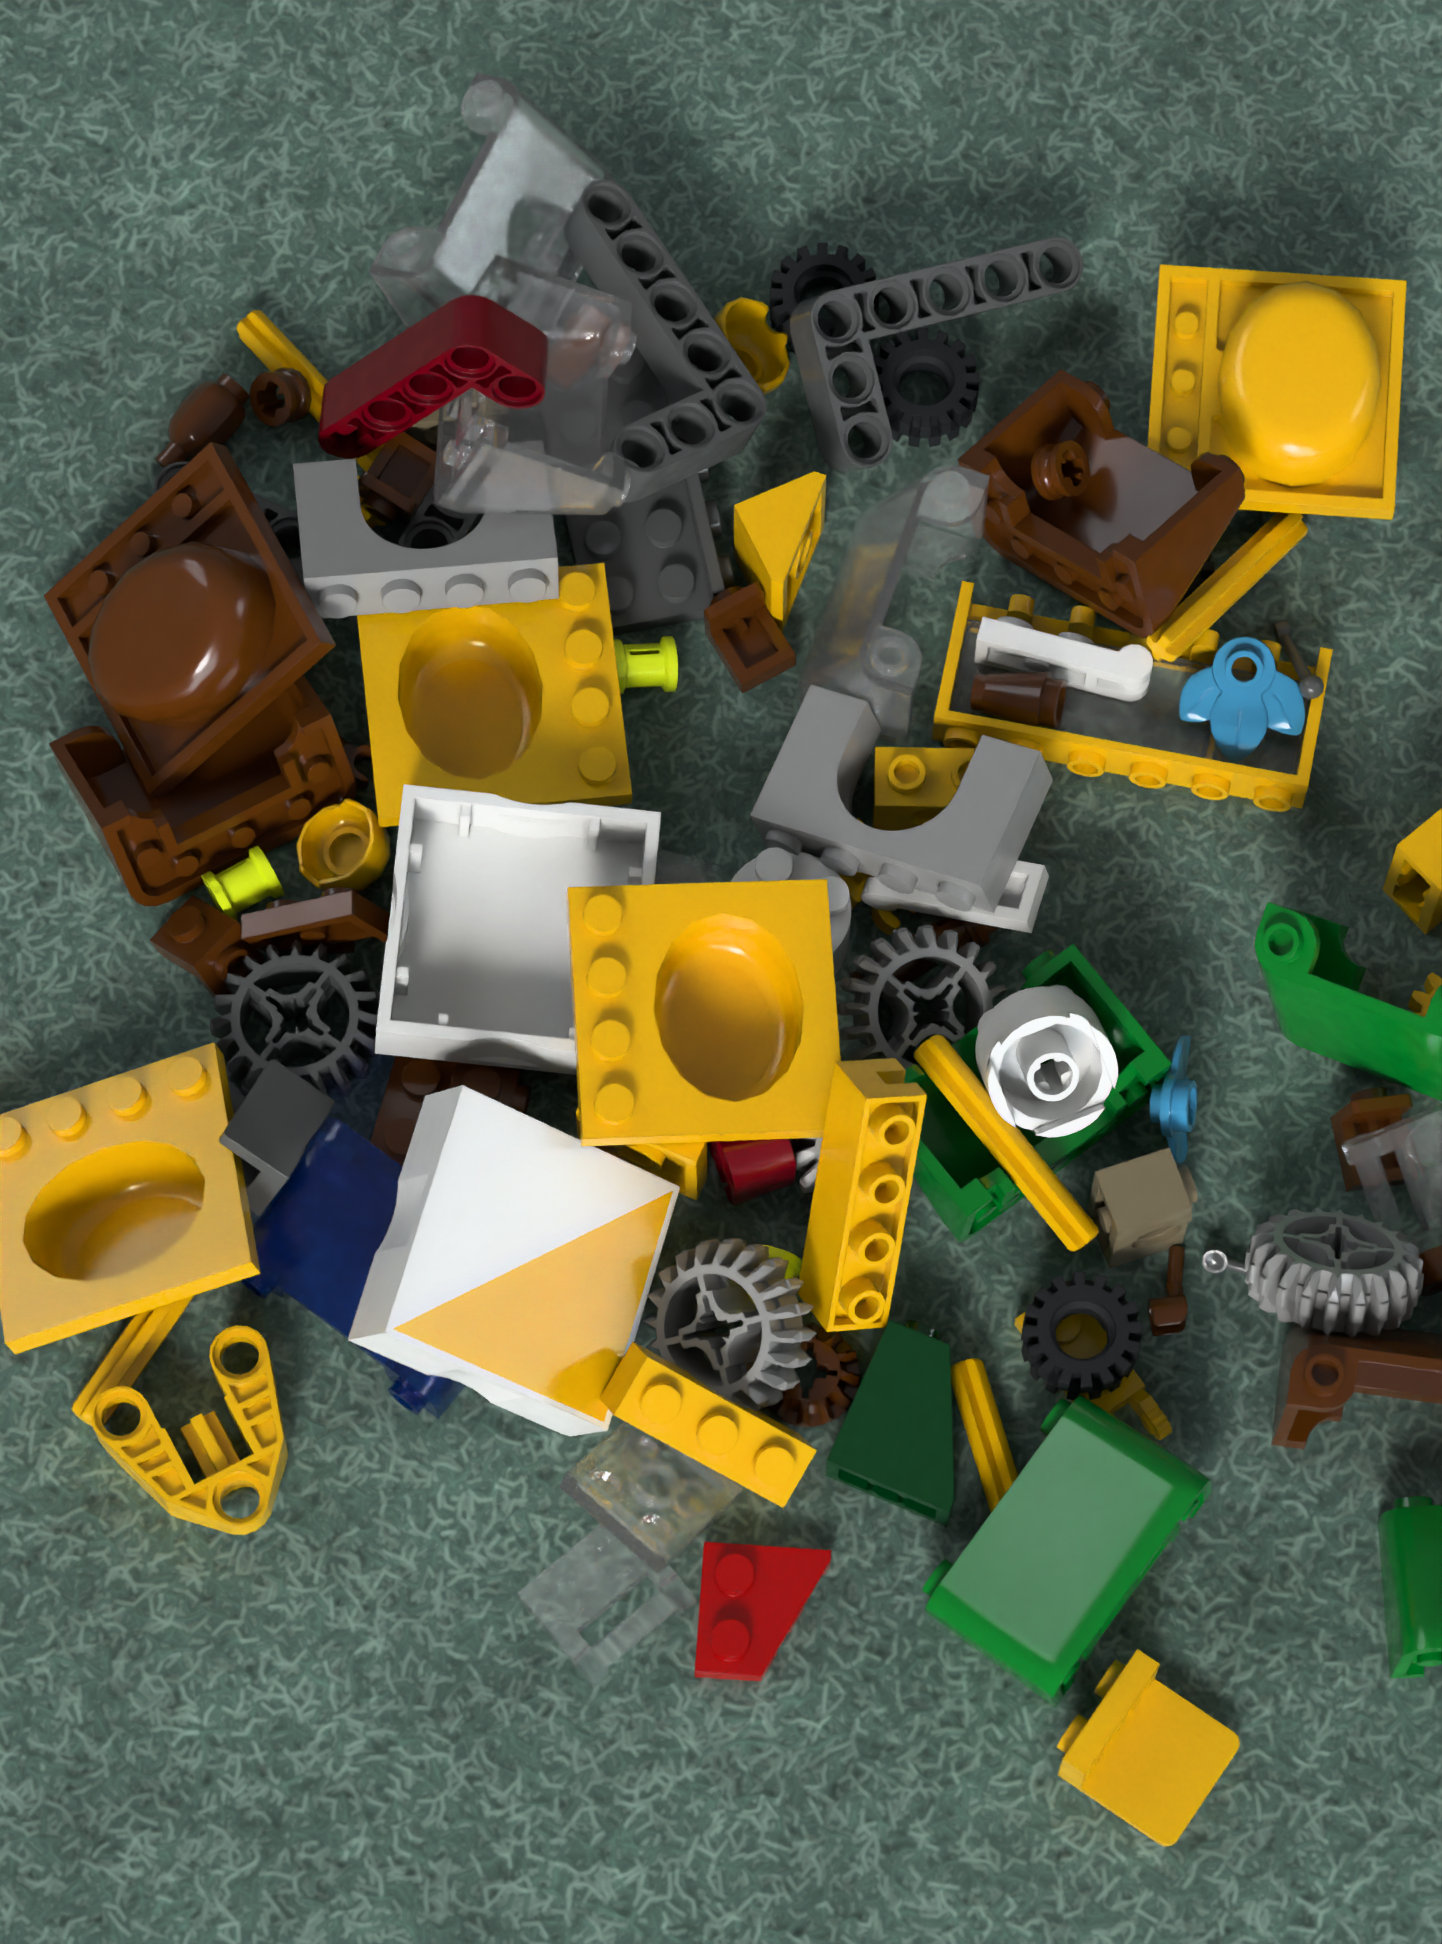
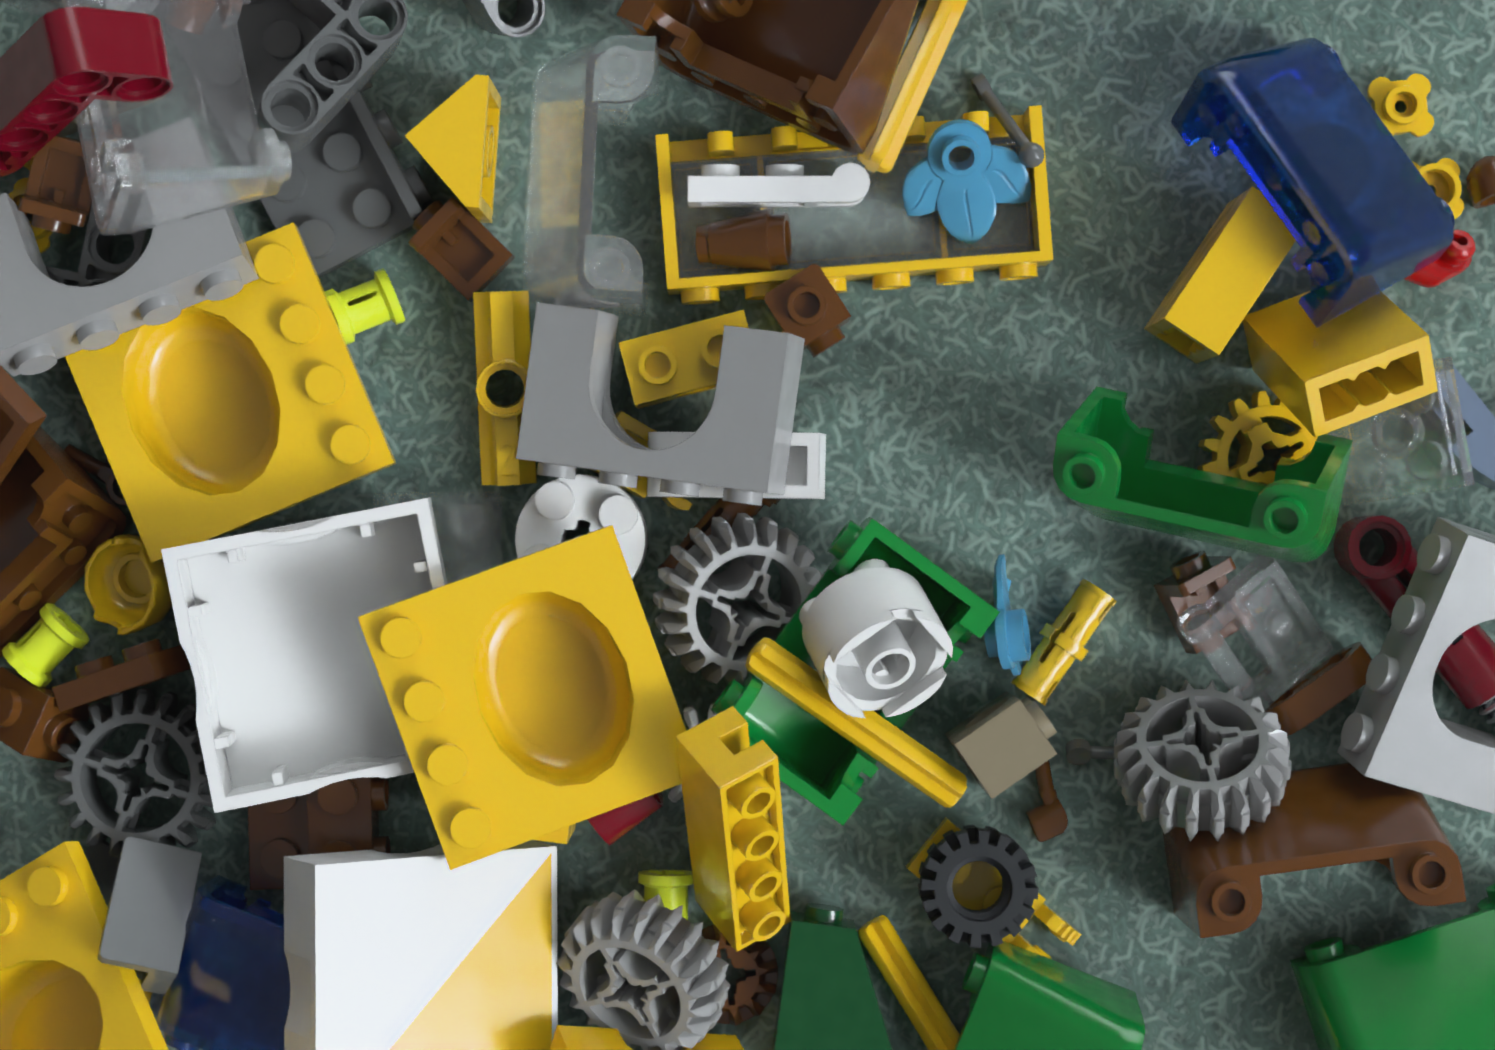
camera: 15 degrees left, 20 degrees up
(760, 732) = (501, 344): none -> yellow piece
(1074, 775) = (809, 309): none -> reddish brown bracket
(1232, 1145) = (1064, 641): none -> yellow pin

